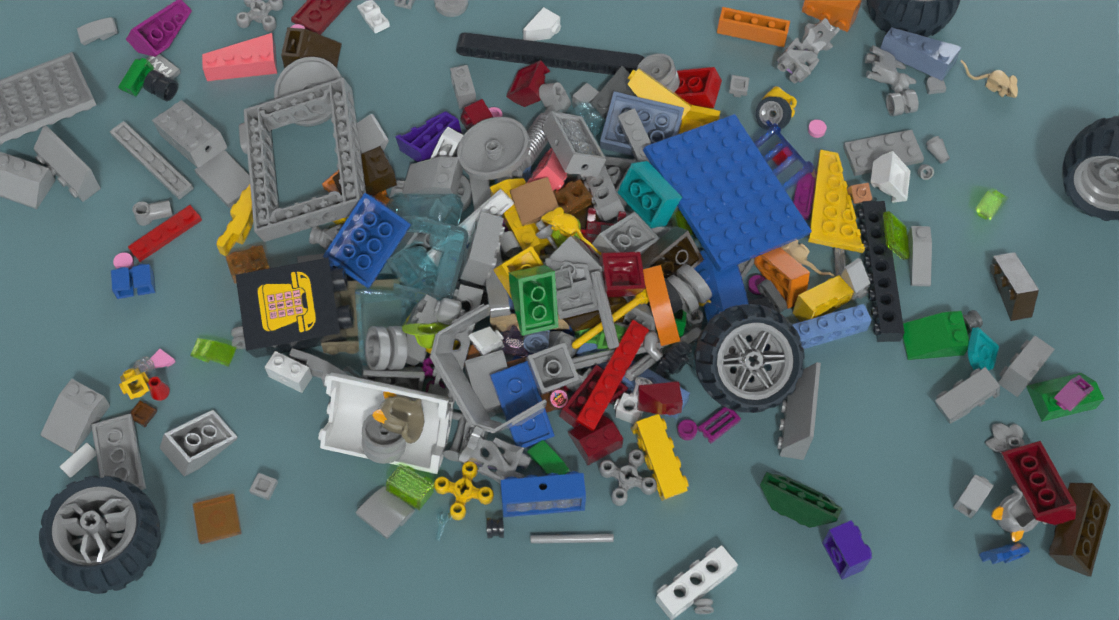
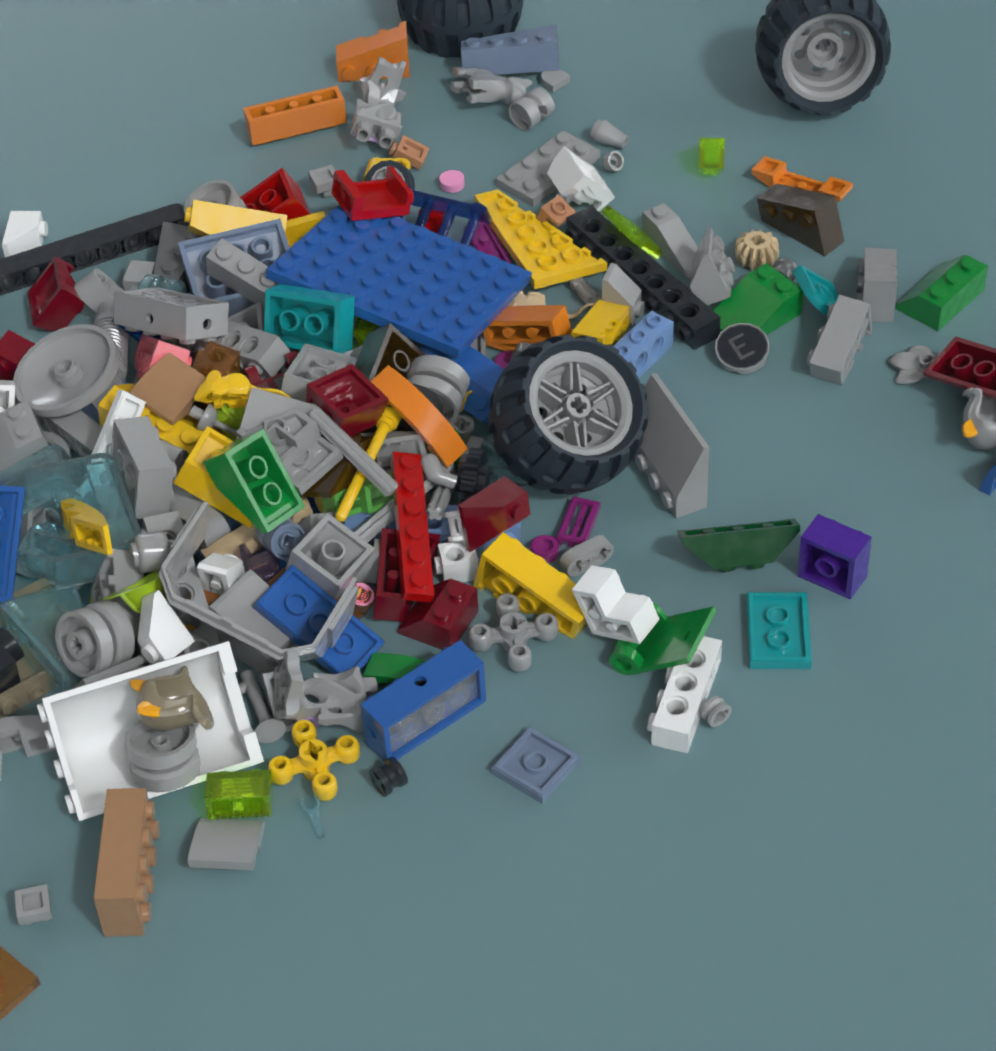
camera: 30 degrees left, 15 degrees down
(322, 493) = (126, 862): none -> medium nougat brick
(420, 368) = (161, 630): none -> white slope
(425, 272) = (86, 526): none -> yellow slope
(572, 538) = (494, 737): light grey bar -> none
(581, 572) = (536, 765): none -> sand blue tile
(690, 503) = (611, 609): none -> white brick
(705, 539) = (666, 645): none -> green door
(706, 451) = (582, 556): none -> light grey beam
(747, 125) = (372, 198): none -> red panel
(782, 574) = (778, 630): none -> teal tile
(804, 92) = (409, 149): none -> nougat bracket
(904, 361) = (742, 348): none -> black tile
(922, 296) = (711, 270): none -> light grey slope
(967, 293) = (756, 249): none -> tan gear
(973, 496) = (928, 429): light grey slope -> none
(998, 82) = (622, 43): tan animal -> none
(1032, 259) = (775, 171): none -> orange slope
(1073, 393) = (953, 270): magenta slope -> none

